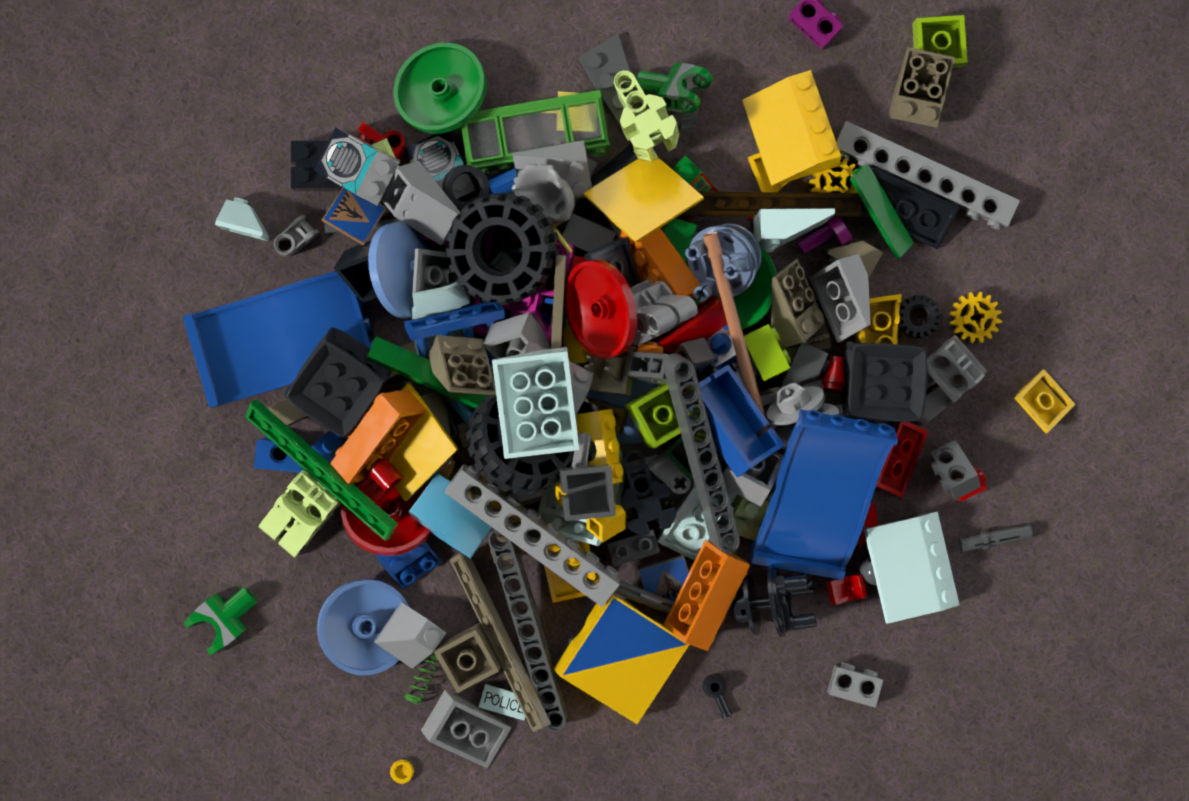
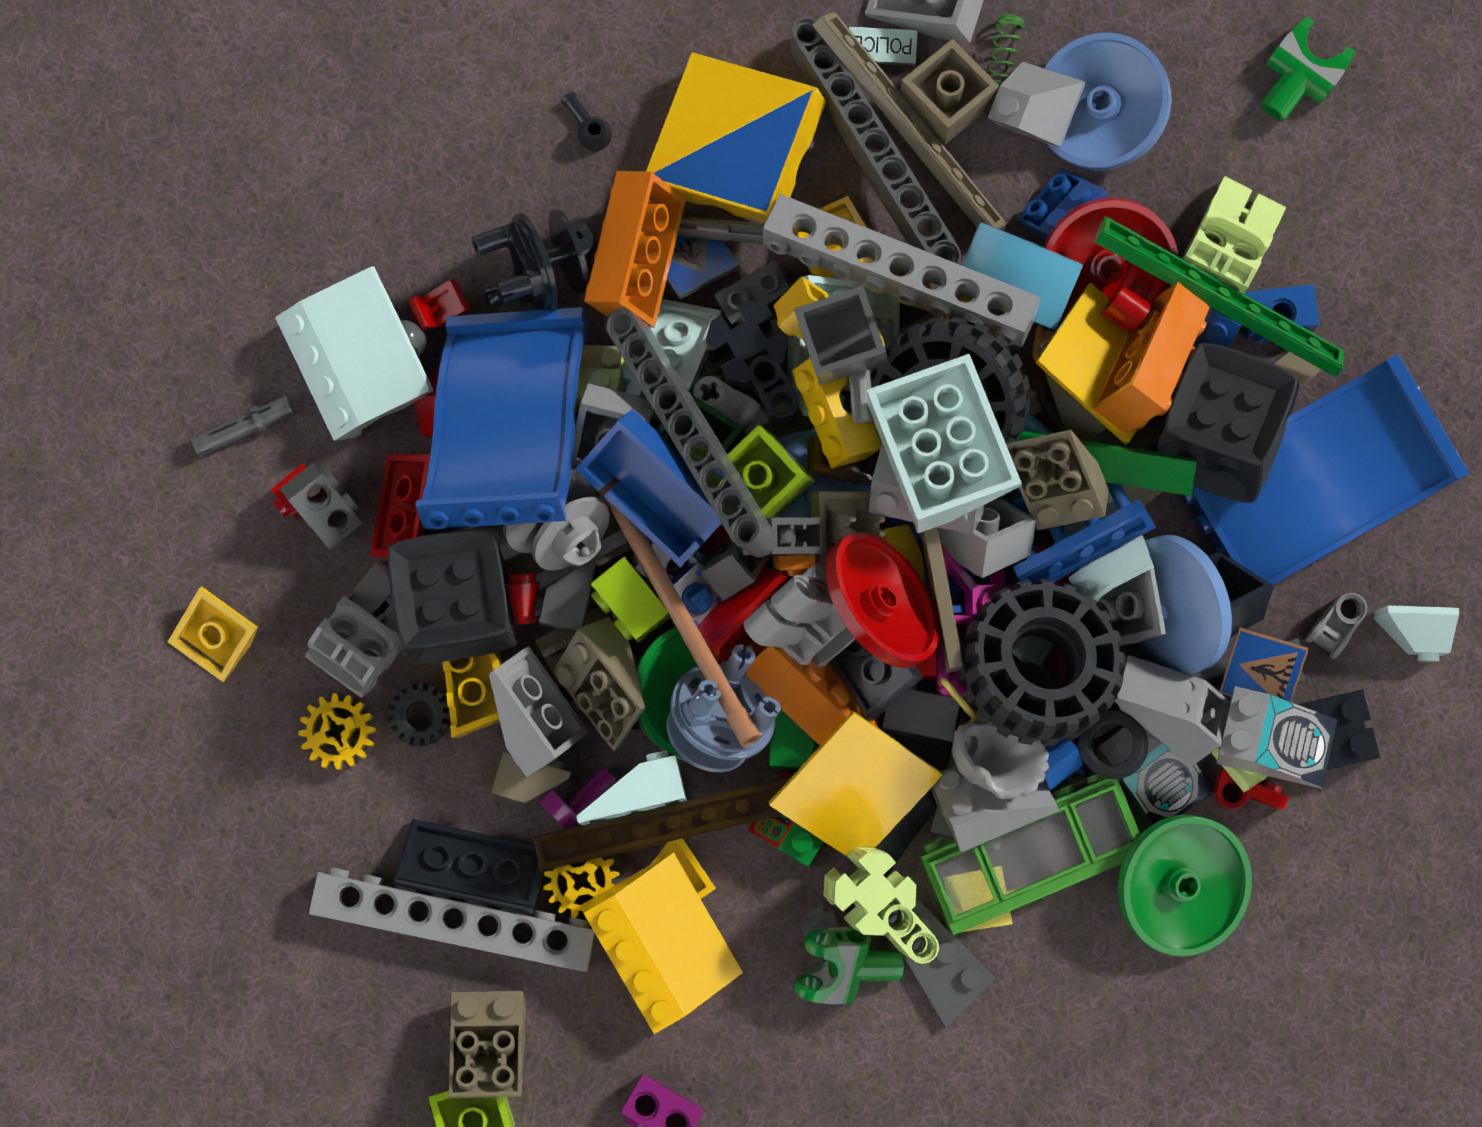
camera: 165 degrees right, 5 degrees down
(853, 689) = (399, 167): light grey brick -> none
(881, 210) = (506, 852): green slope -> none

